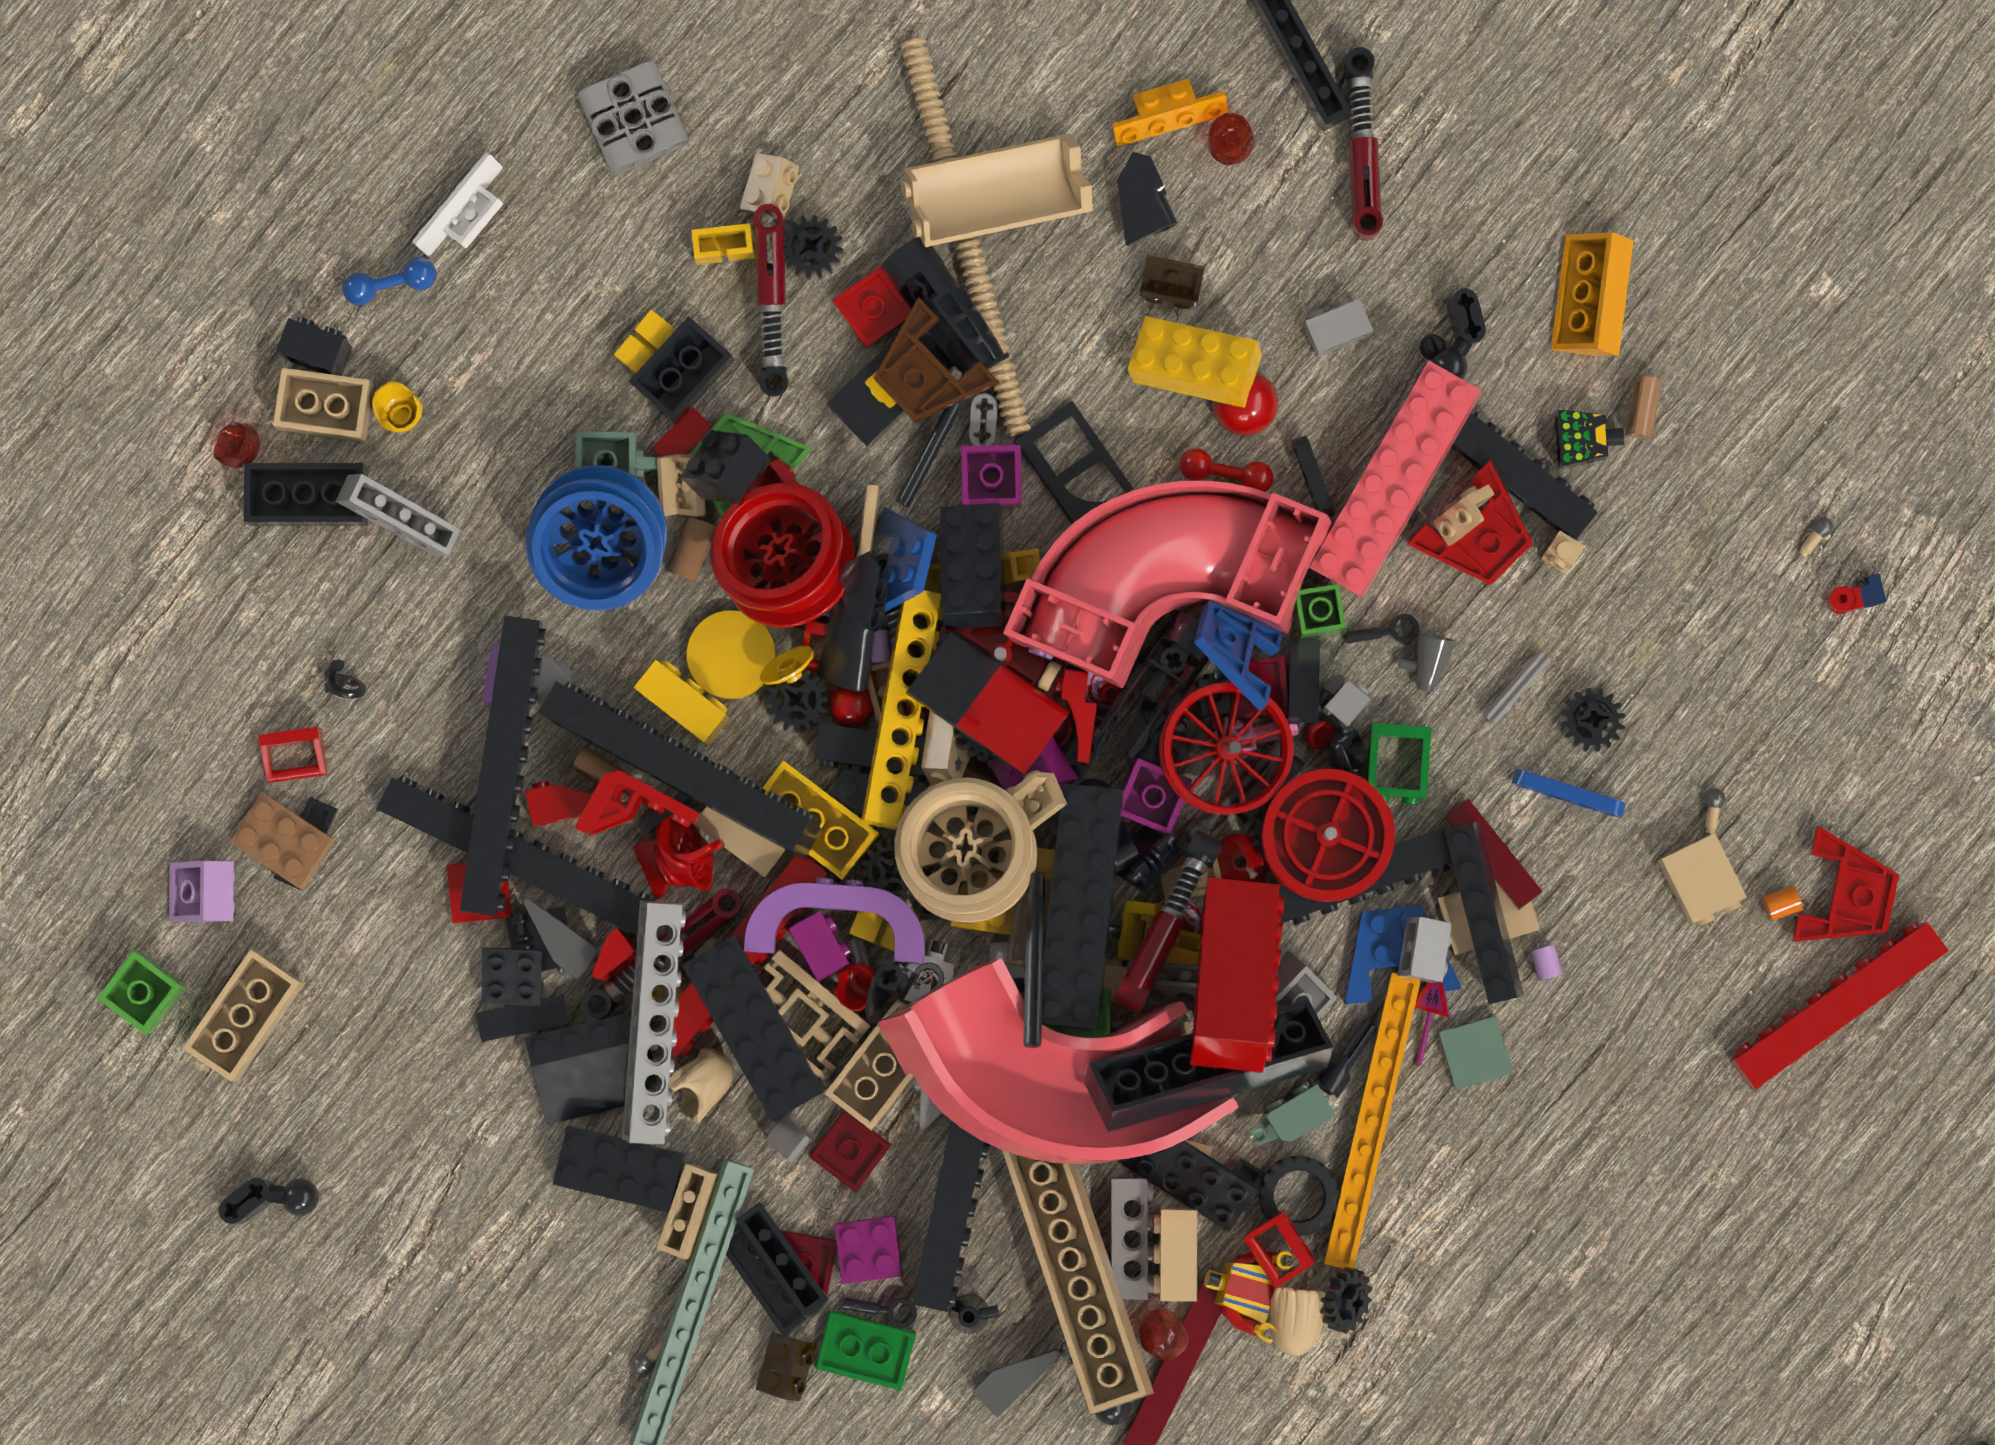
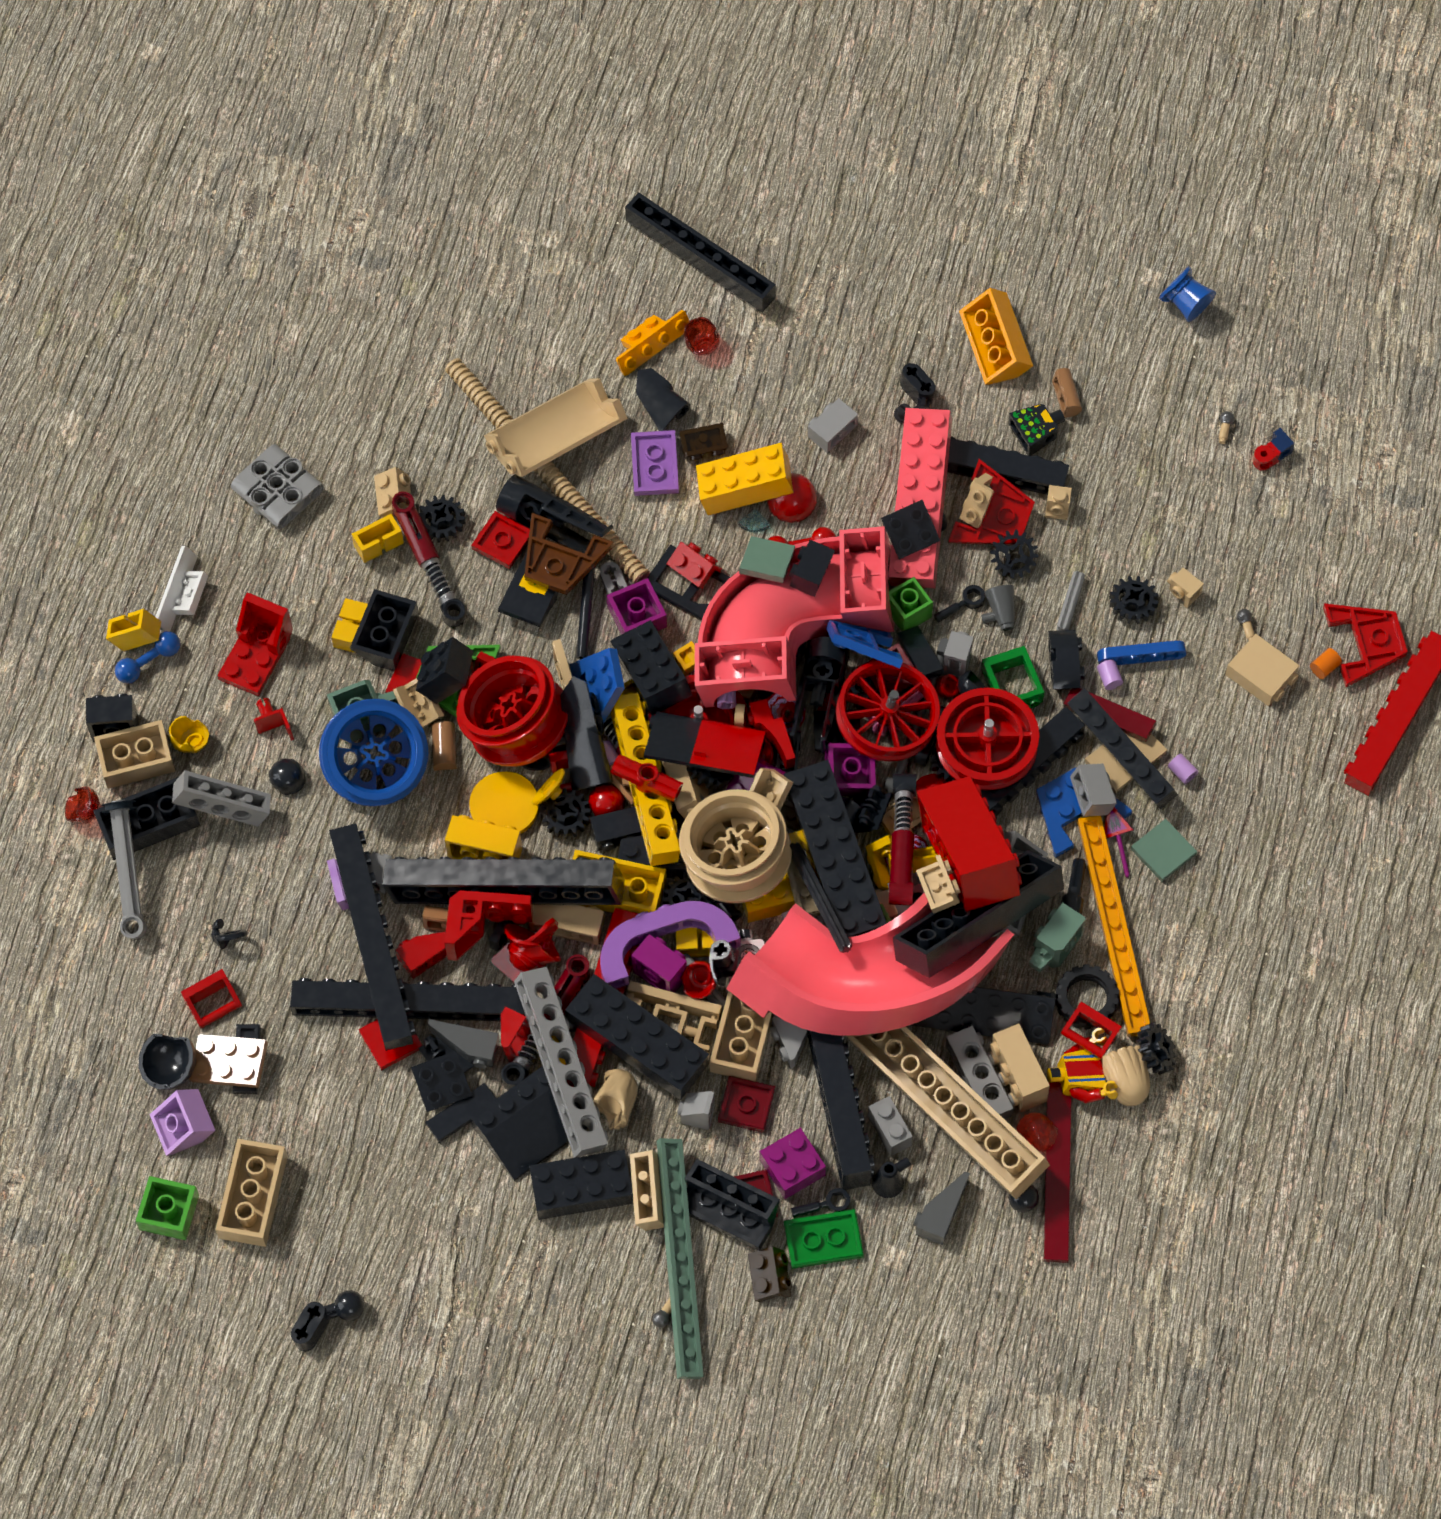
camera: 25 degrees left, 20 degrees down
(209, 814) = (167, 1061): none -> black cylinder
(254, 554) = (126, 866): none -> light grey piece
(384, 243) = (133, 631): none -> yellow piece
(493, 507) = (287, 776): none -> black hair
(503, 426) = (270, 719): none -> red bracket
(521, 326) = (262, 638): none -> red bracket
(913, 734) = (658, 782): none -> red piece
(999, 1254) = (890, 1126): none -> light grey brick
(1087, 442) = (693, 564): none -> bracket
(1100, 283) = (654, 463): none -> medium lavender plate
(1168, 492) = (767, 559): none -> sand green tile
(1171, 1022) = (938, 886): none -> tan bracket
(1186, 414) = (754, 522): none -> clear light blue tile
(1216, 527) = (811, 568): none -> black brick
(1312, 476) = (853, 516): black beam -> none
(1359, 526) = (910, 529): none -> black hinge
(1363, 147) = (795, 309): piece -> none
(1471, 589) = (1023, 558): none -> black gear
(1472, 763) = (1064, 659): none -> black brick
(1518, 804) = (1110, 674): none -> lavender piece
(1662, 729) = (1185, 586): none -> tan brick
(1855, 343) = (1188, 295): none -> blue hat

